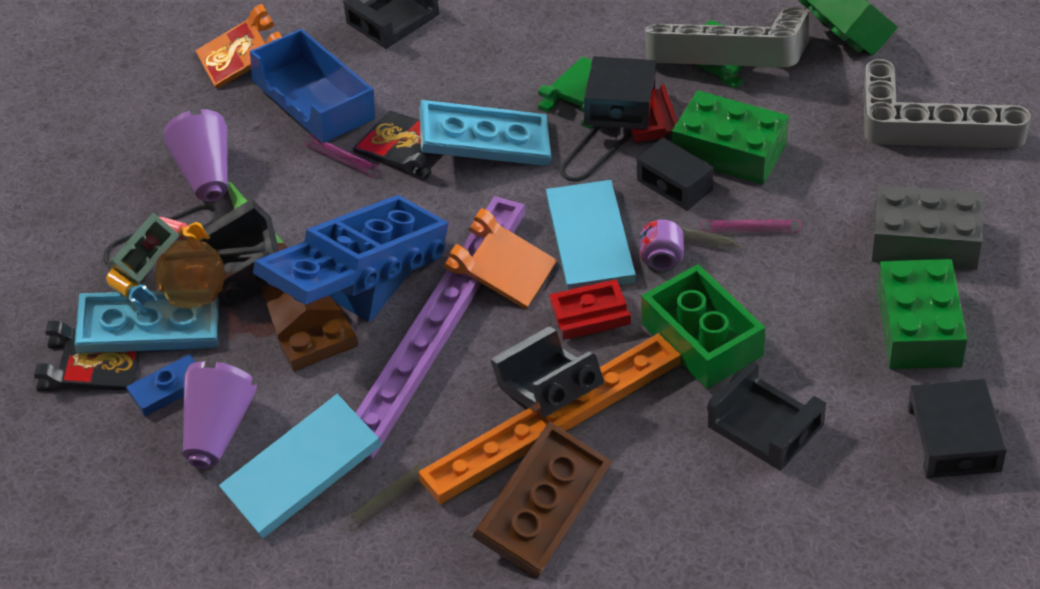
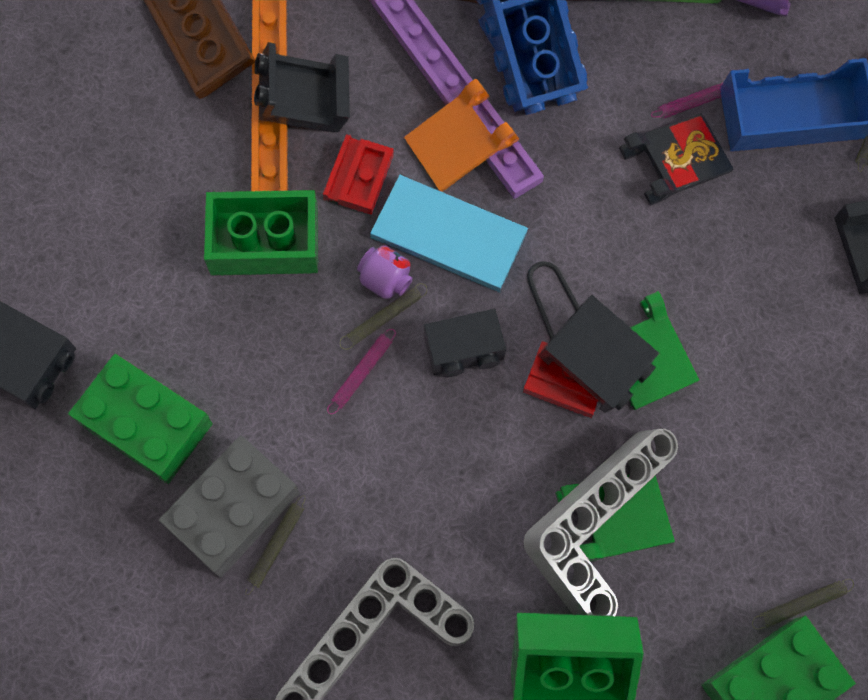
camera: 115 degrees right, 25 degrees up
(484, 133) = (632, 213): medium azure tile -> none
(732, 136) = (474, 420): green brick -> none
(764, 418) = (145, 227): black panel -> none

